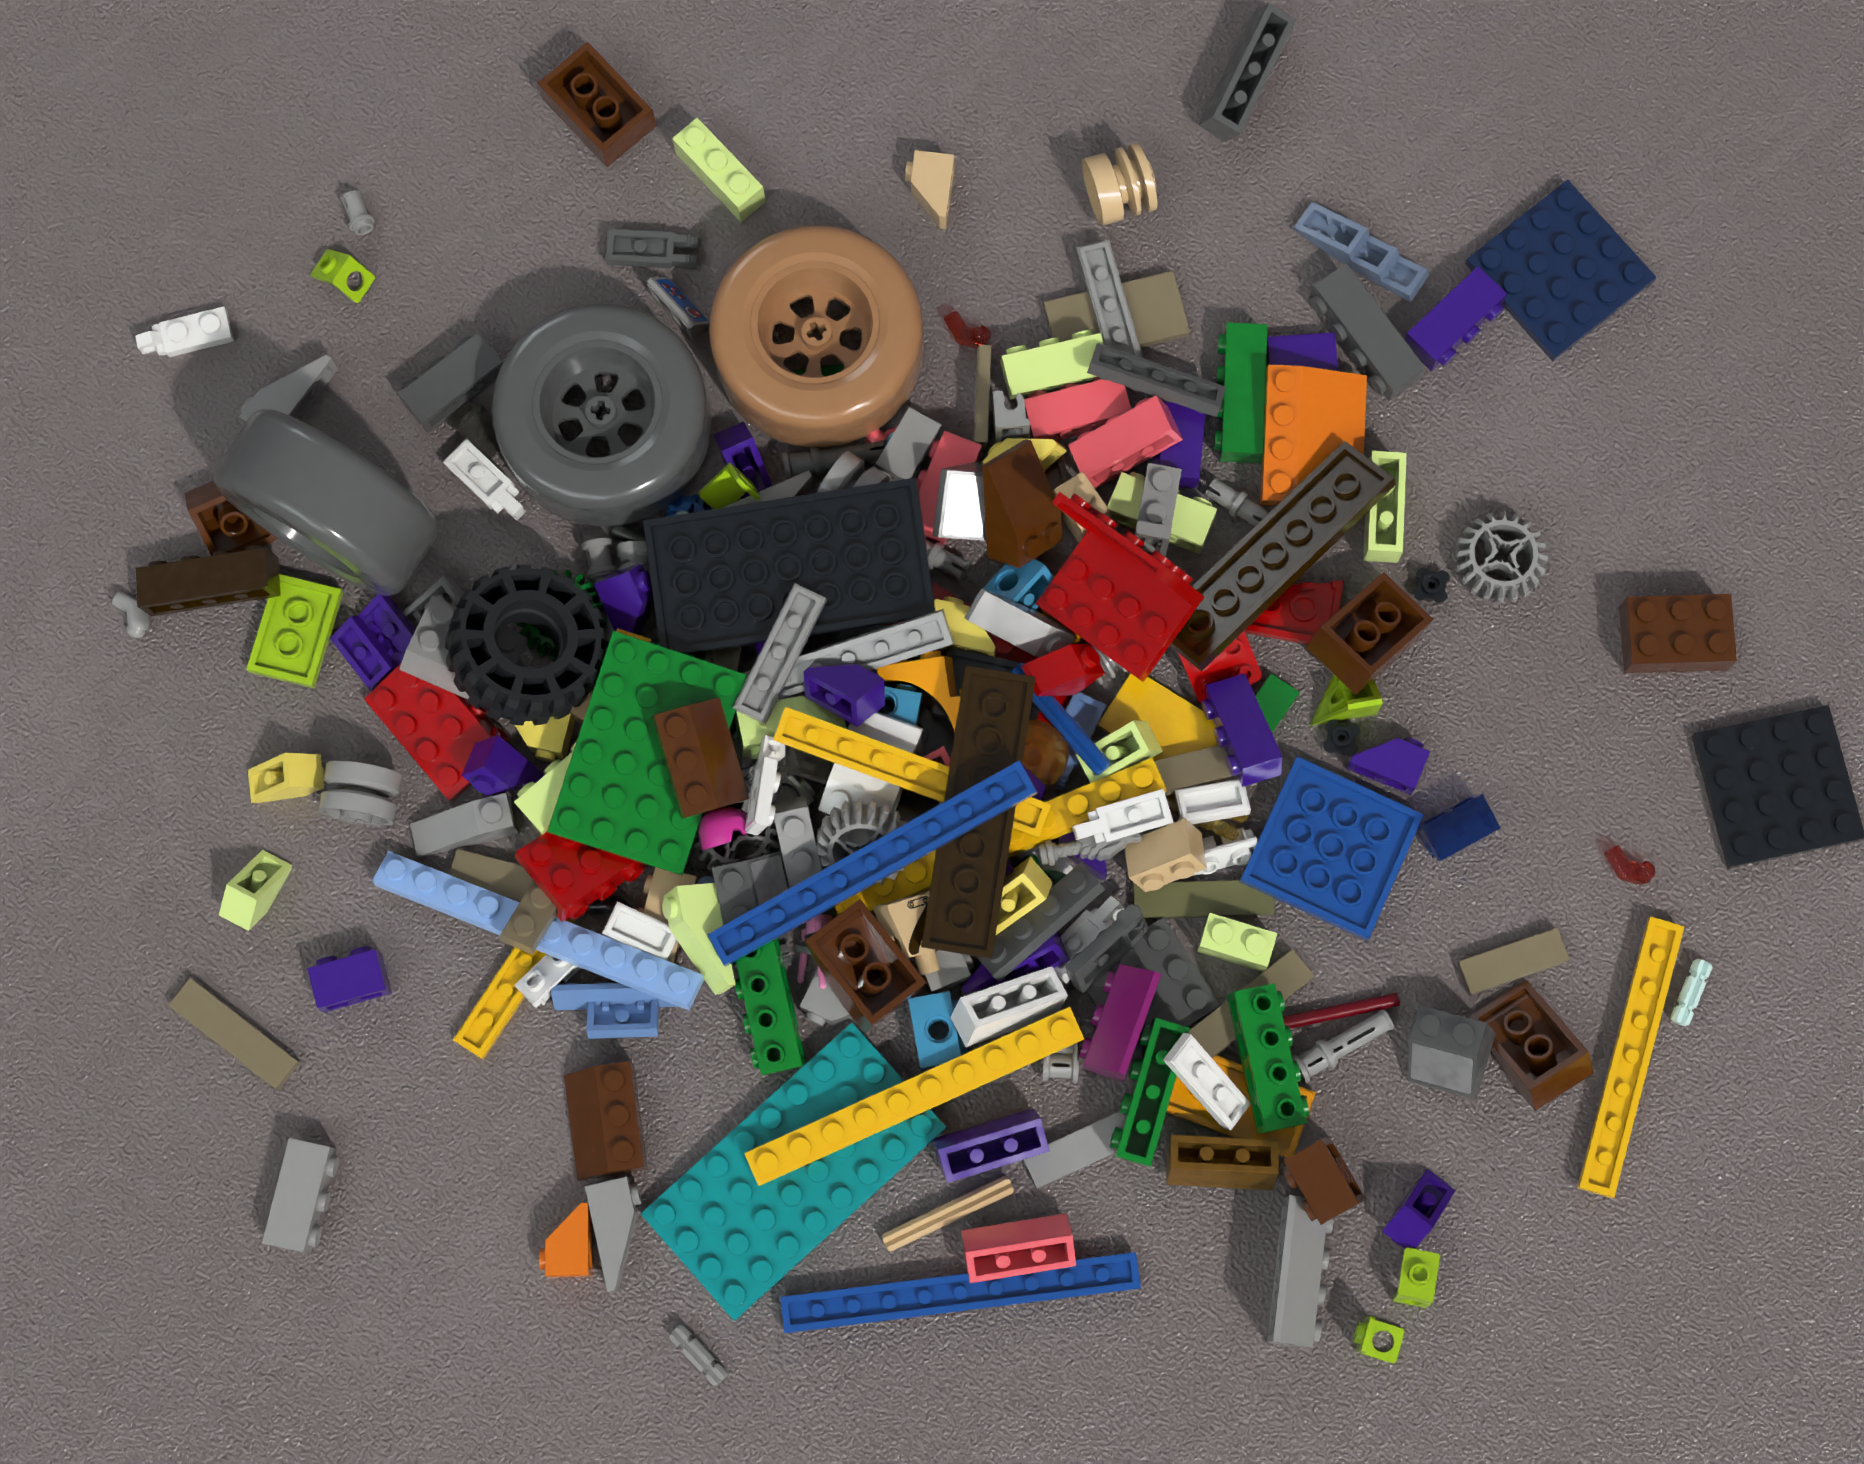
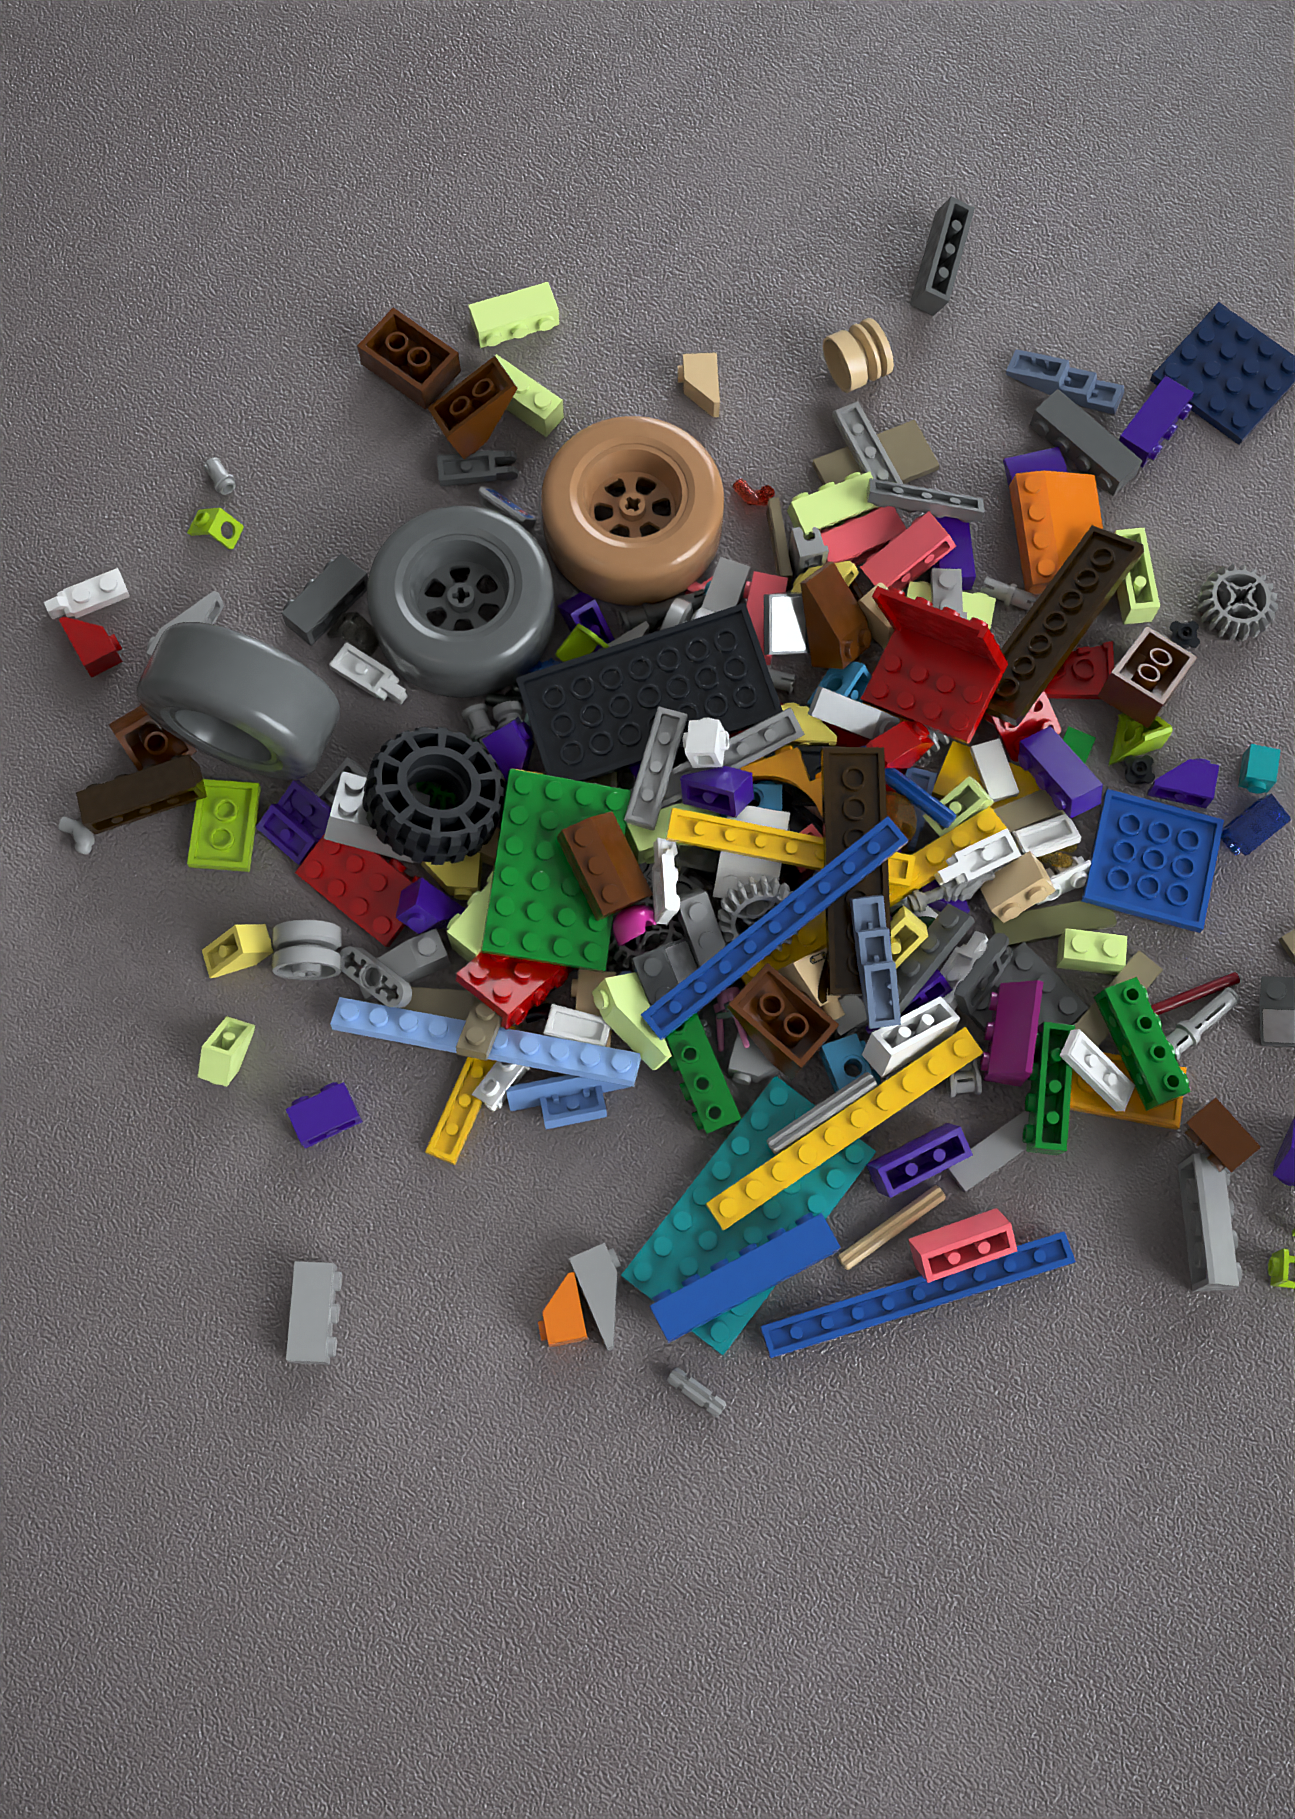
camera: 15 degrees left, 5 degrees down
(181, 396) = (93, 645): none -> red slope
(234, 1034) = (228, 1180): dark tan tile -> none
(443, 840) = (387, 977): none -> light grey beam
(605, 1121) = (574, 1199): reddish brown slope -> none
(657, 181) = (474, 407): none -> reddish brown slope
(729, 67) = (514, 315): none -> yellowish green brick
(769, 1242) = (744, 1277): none -> blue brick
(838, 636) = (705, 743): none -> white brick
(891, 1075) = (821, 1113): none -> light grey axle
(977, 920) = (875, 961): none -> sand blue slope
(1172, 713) = (994, 770): none -> white tile
(1222, 1162) = (1122, 1139): pearl gold brick -> none
(1244, 397) = (1000, 528): green brick -> none
(1479, 761) = (1259, 768): none -> teal brick

